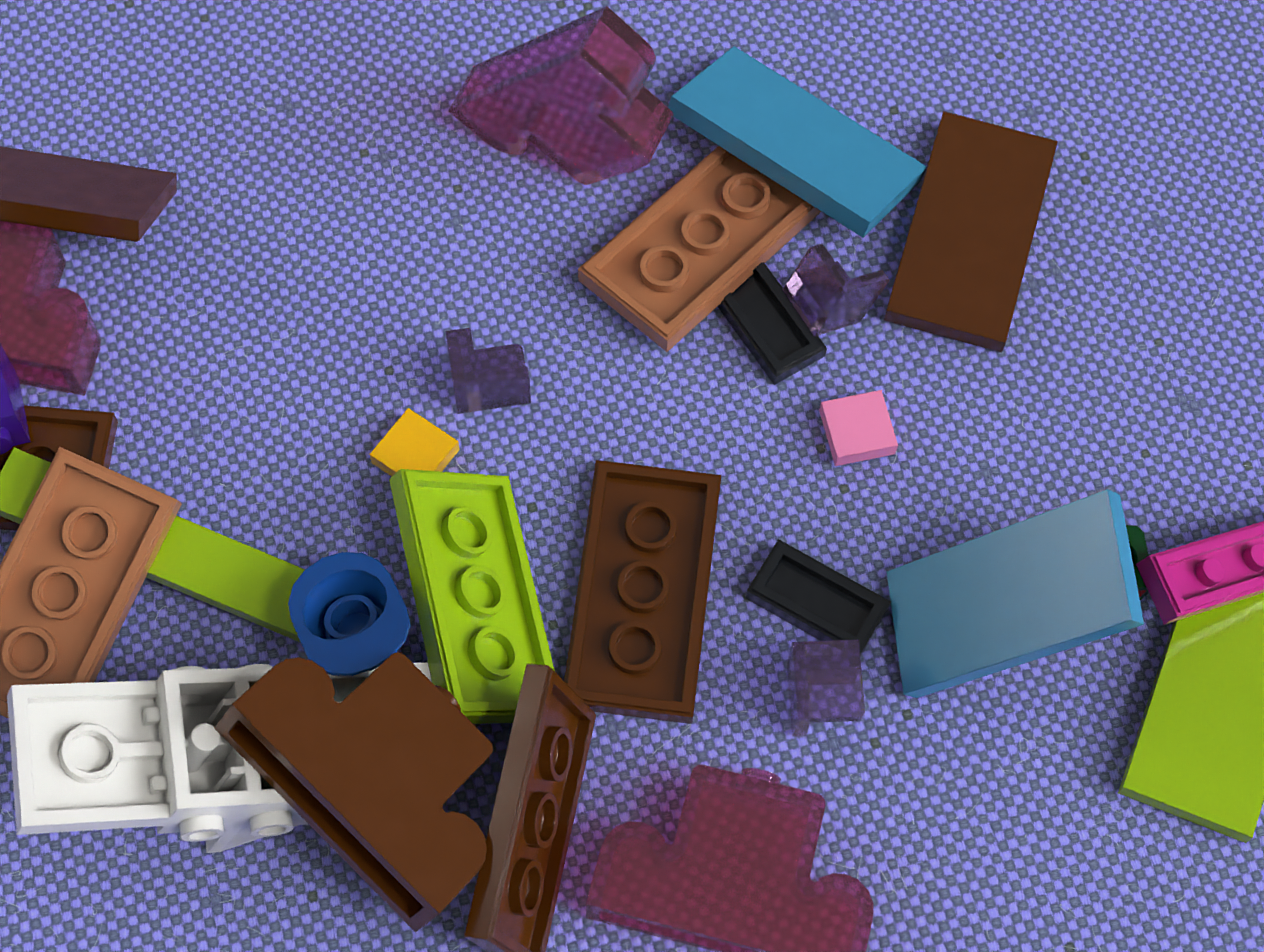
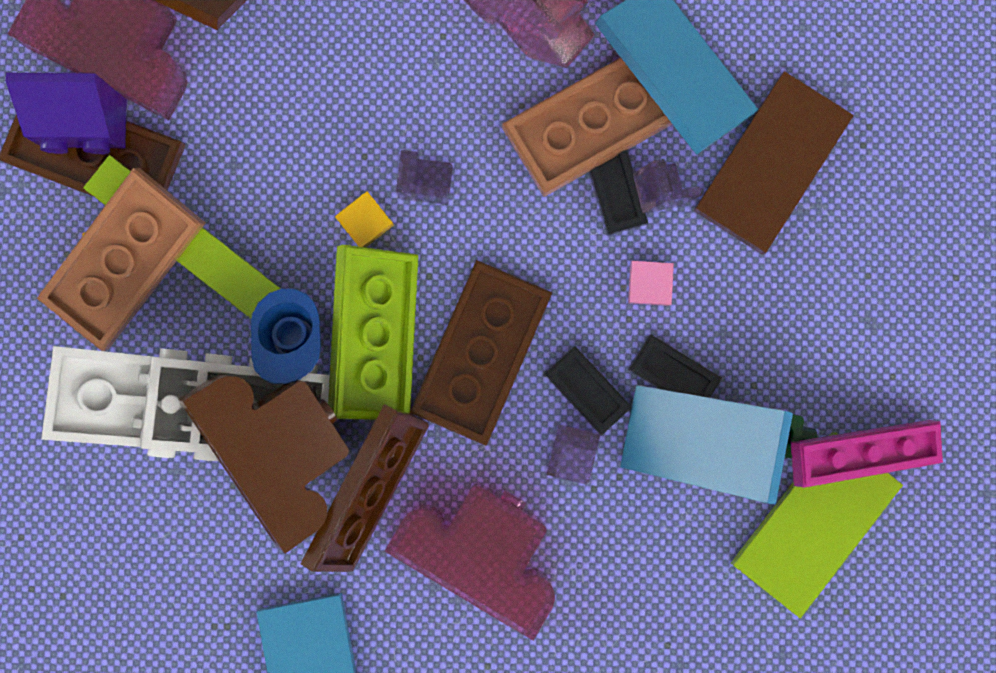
camera: 20 degrees right, 20 degrees up
(912, 531) = (672, 370): none -> black tile

